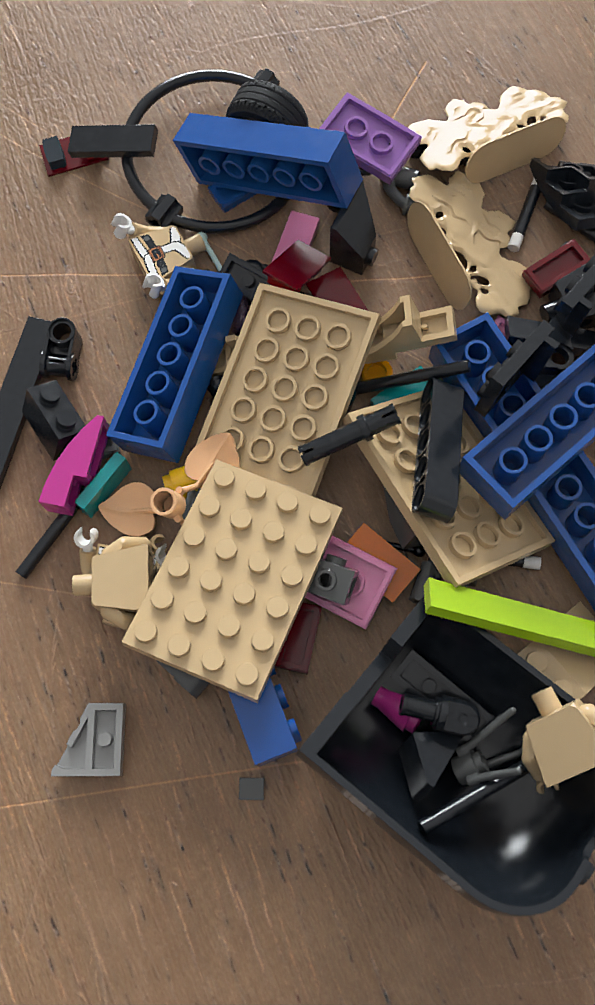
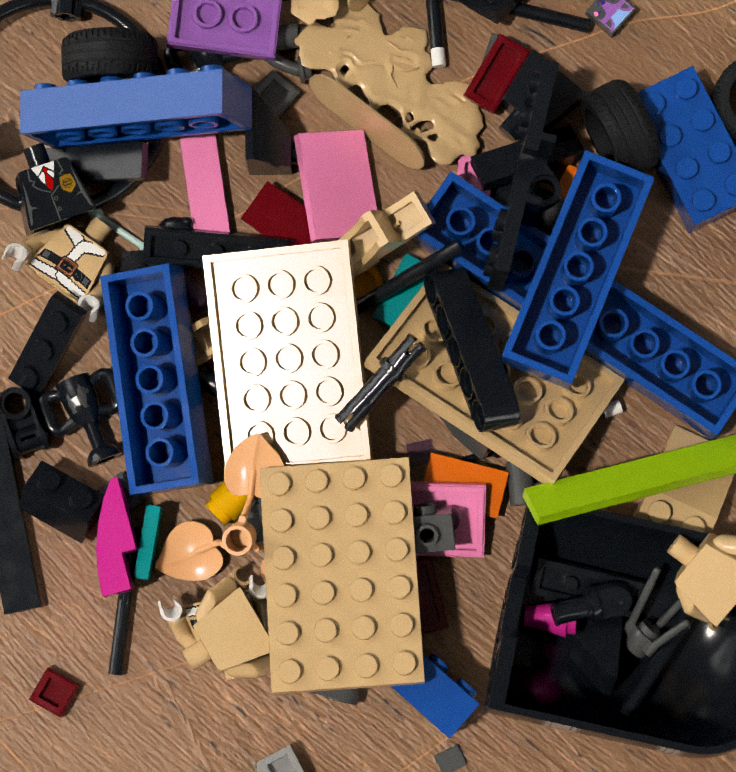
camera: 30 degrees left, 10 degrees up
(110, 300) = (47, 344): none -> black plate
(113, 361) = (84, 410): none -> black piece
(172, 195) = (50, 192): none -> black torso
(220, 197) = (106, 161): none -> black tile
(295, 266) = (226, 211): dark red piece -> none
(354, 520) = (419, 452): none -> window
(382, 214) = (277, 93): none -> dark grey tile
(390, 275) = (334, 181): none -> bright pink tile

